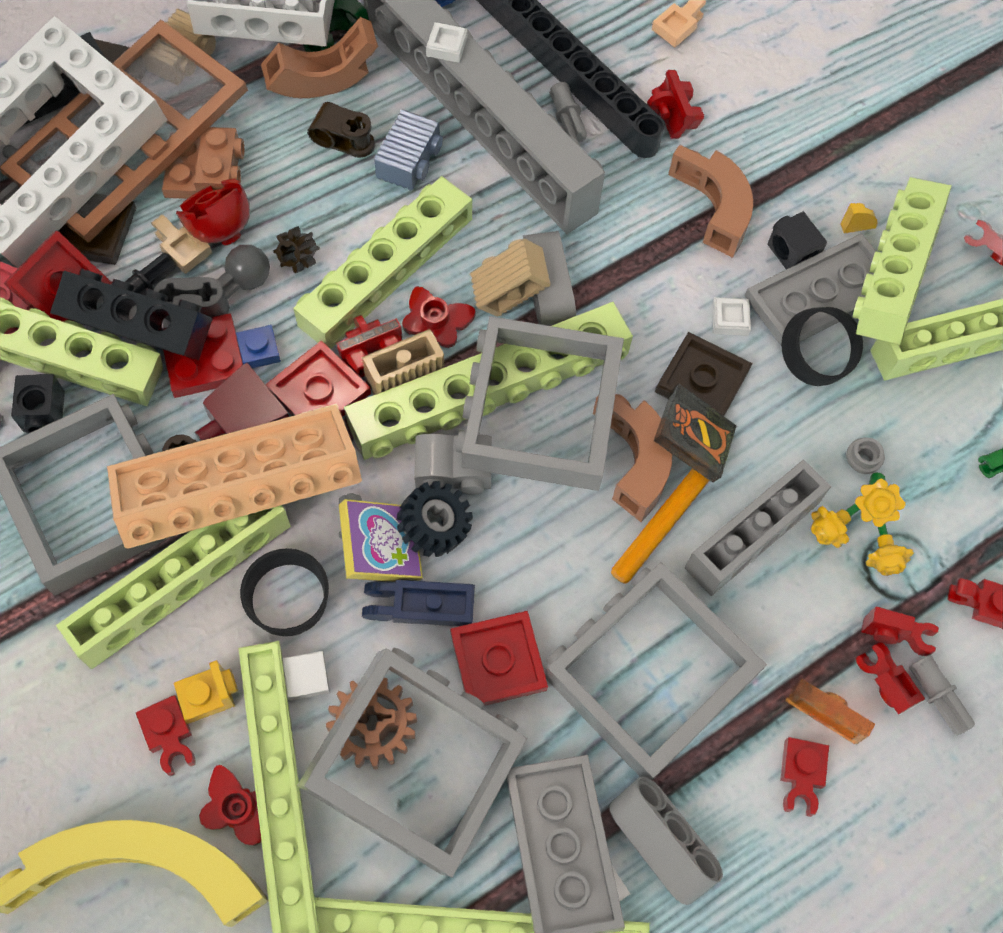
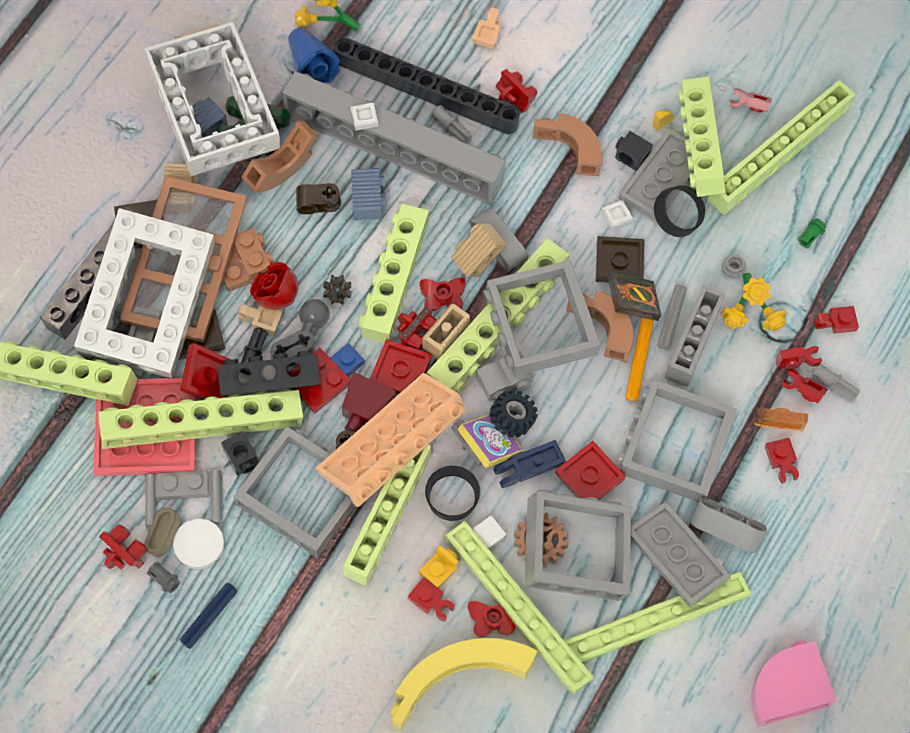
camera: 25 degrees left, 0 degrees up
(738, 487) = (672, 317): none -> light grey axle

